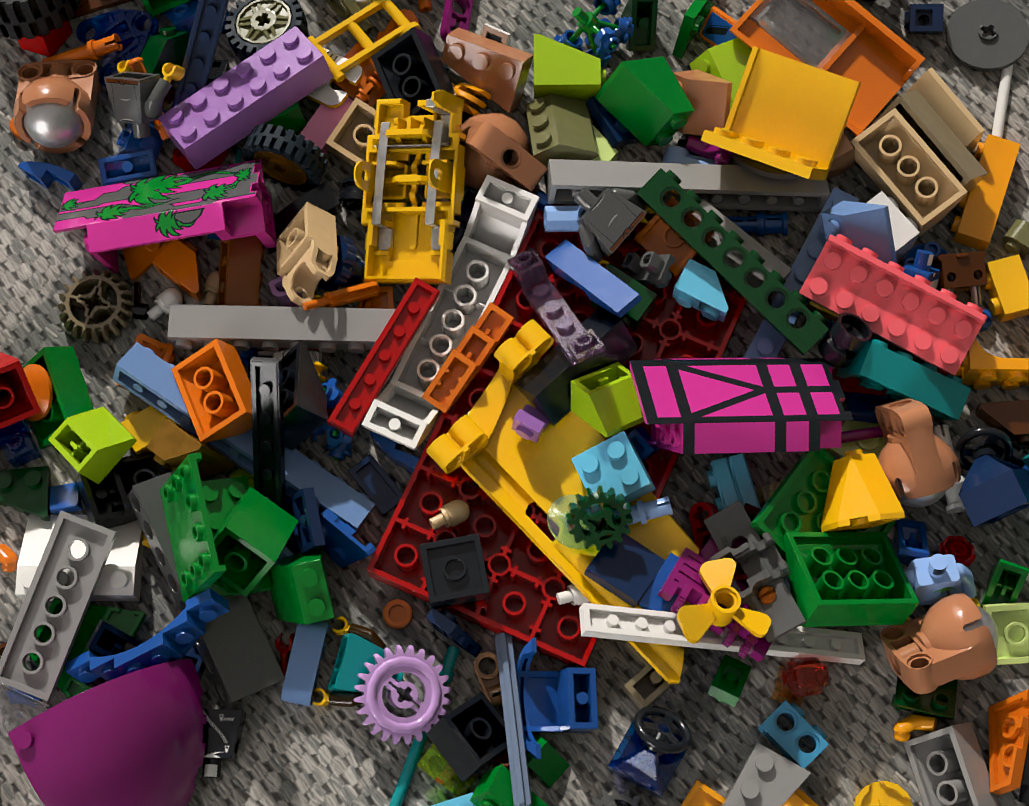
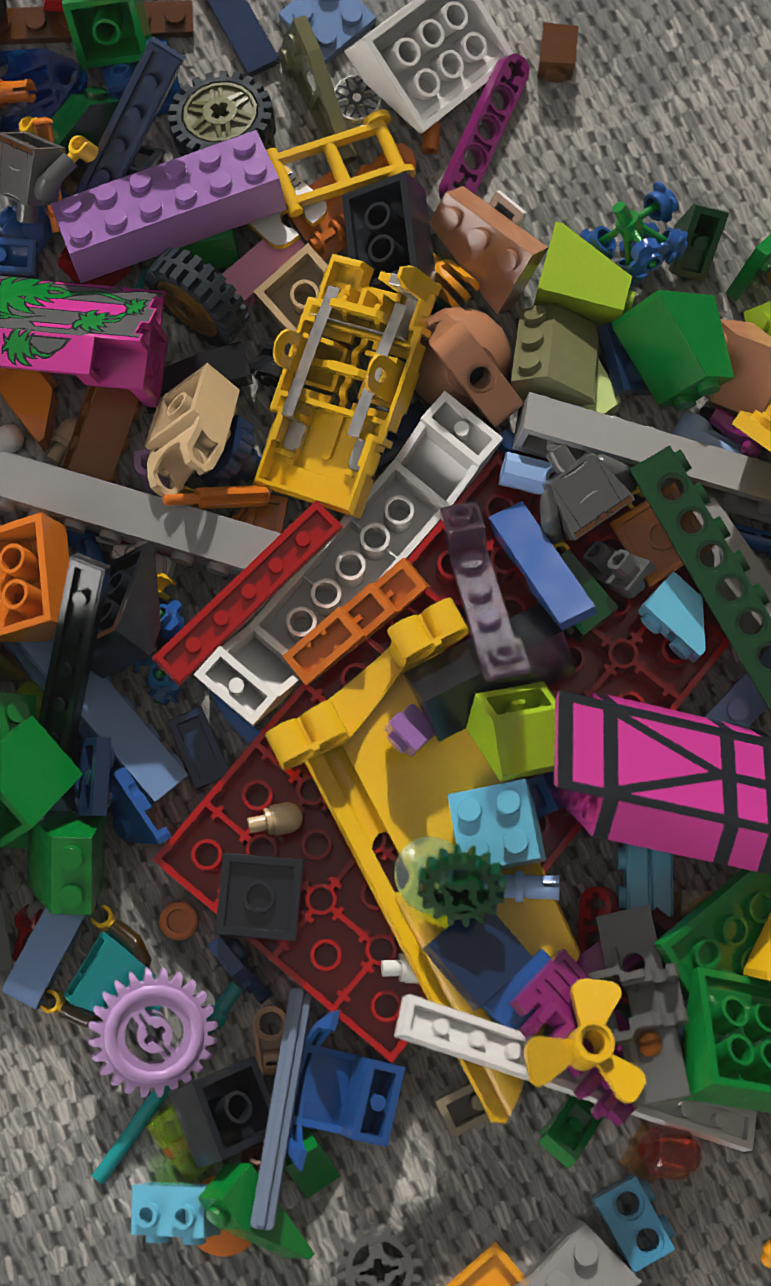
camera: 10 degrees right, 5 degrees up
(651, 750) = (446, 1195): clear blue piece -> none

